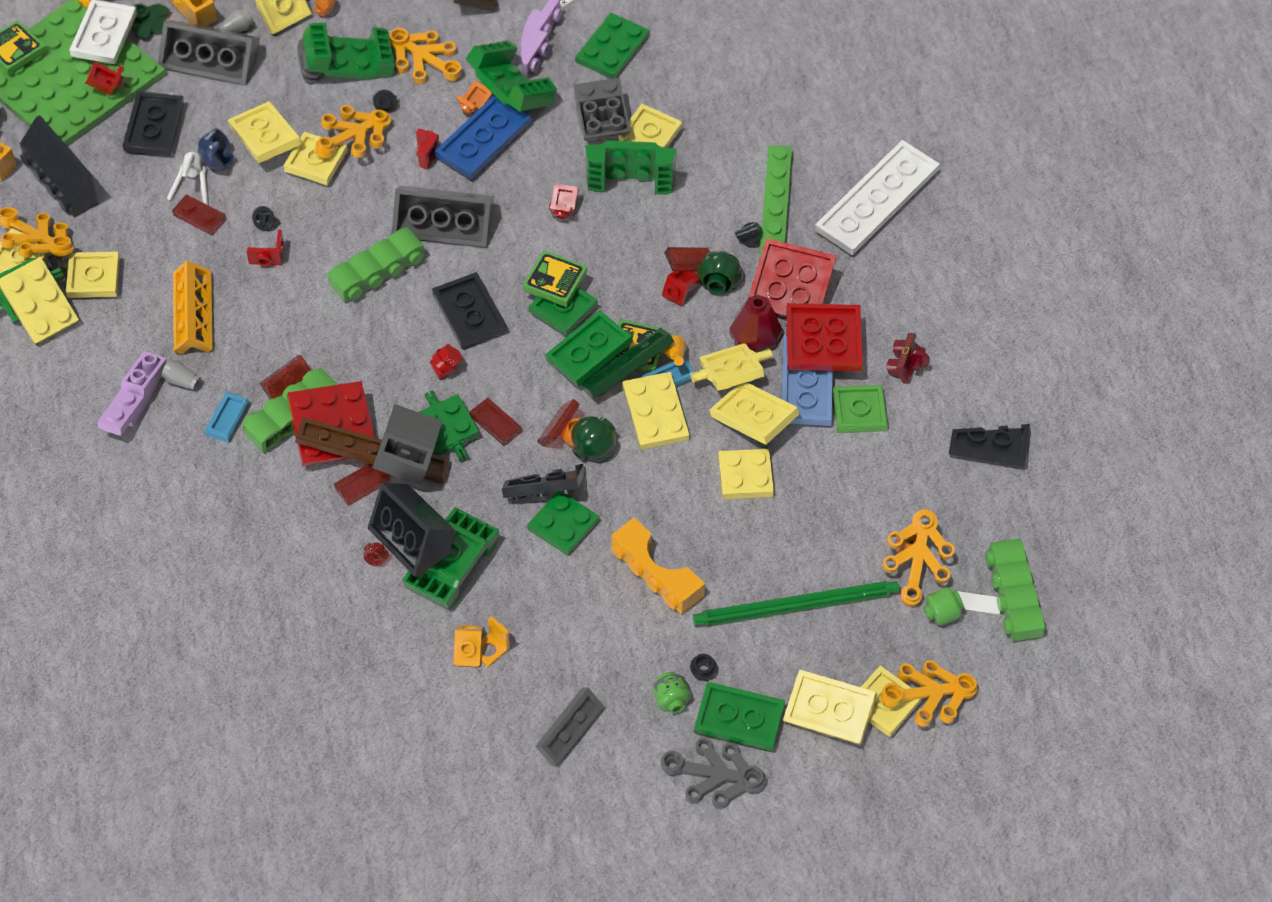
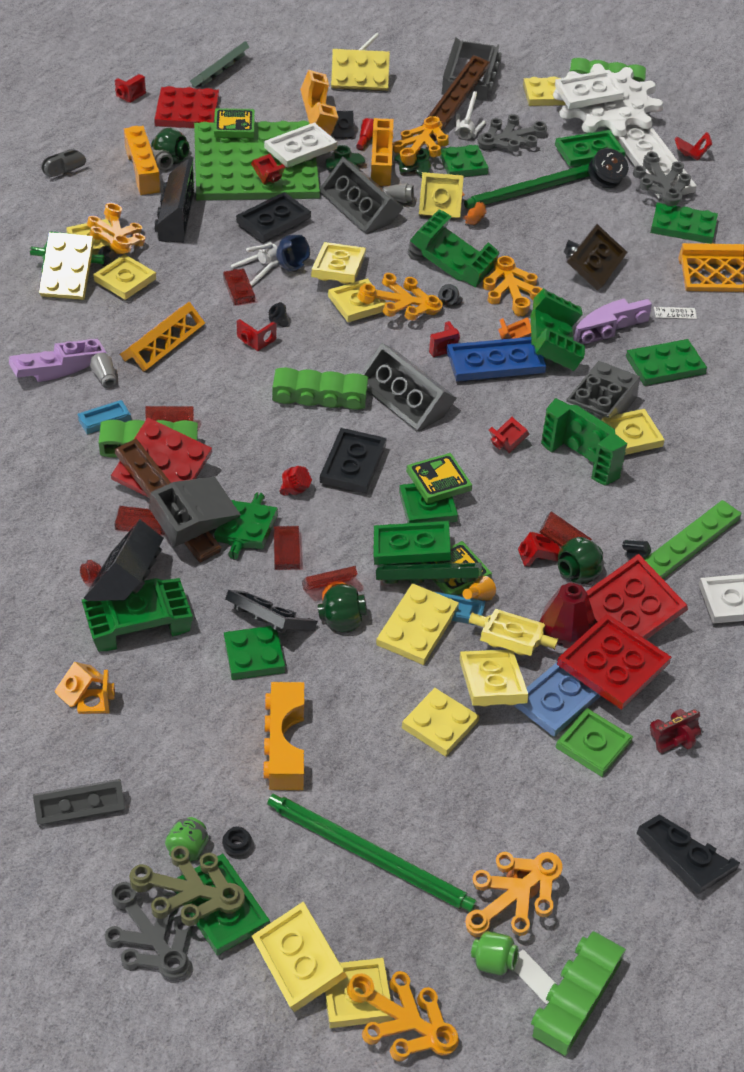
camera: 40 degrees right, 10 degrees down
(716, 719) = (189, 889): none -> olive plant

